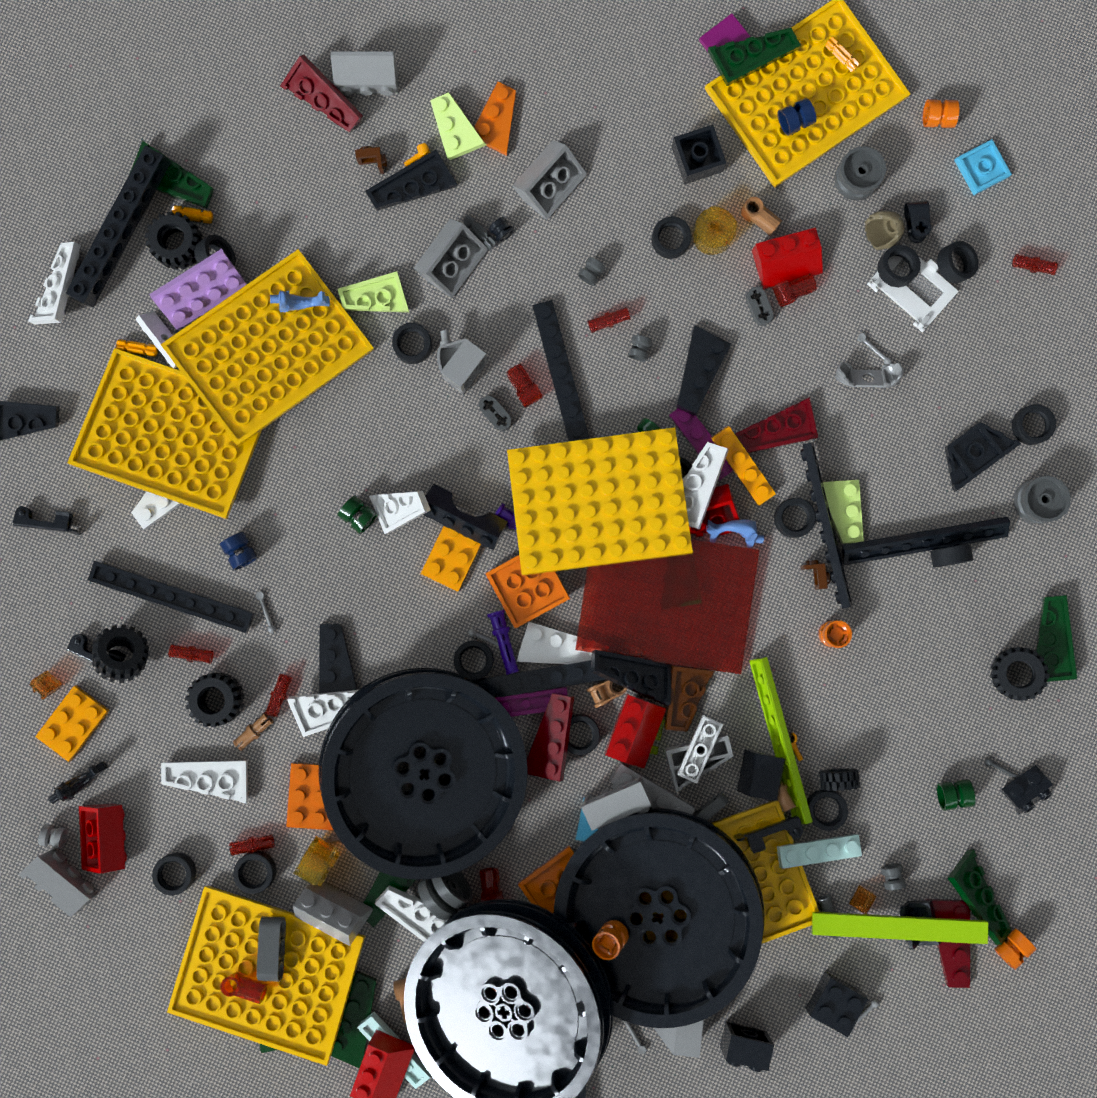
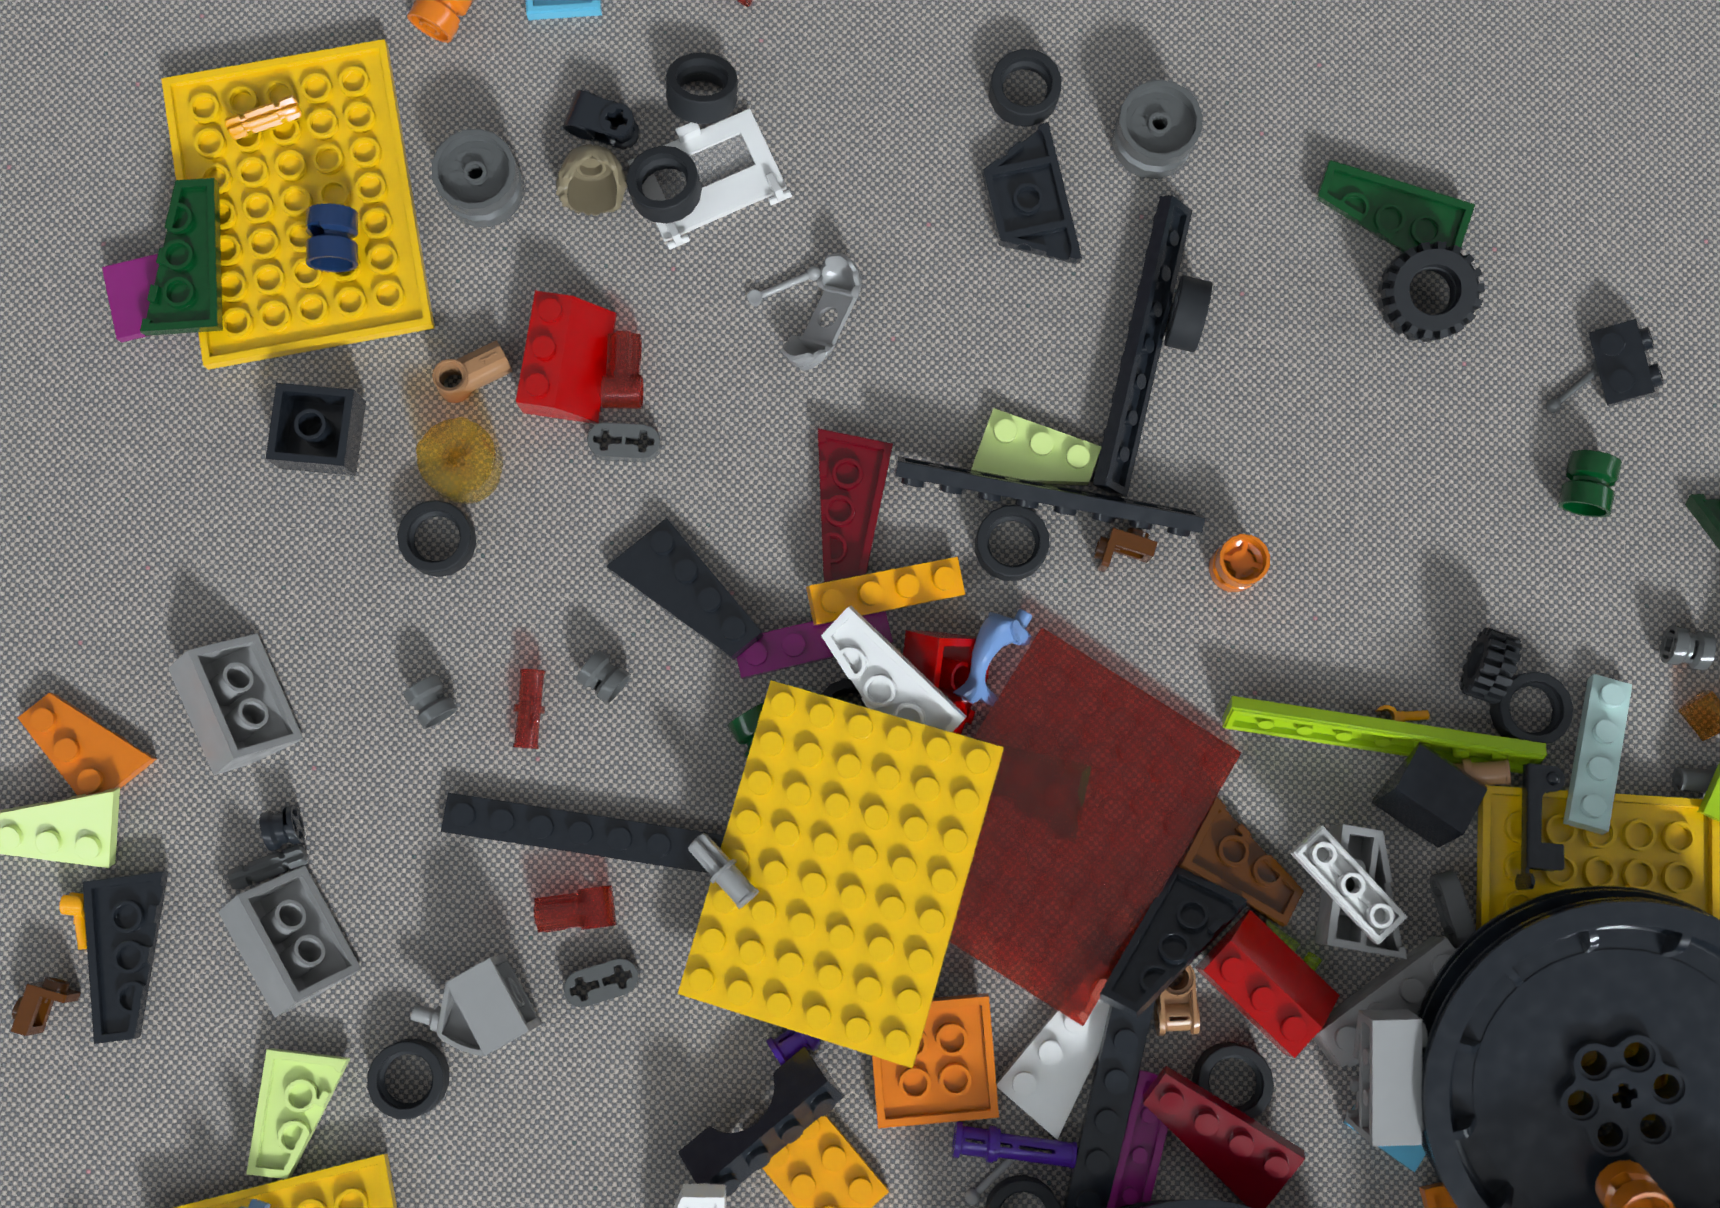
camera: 70 degrees left, 5 degrees down
(574, 444) = (722, 870): none -> light grey axle

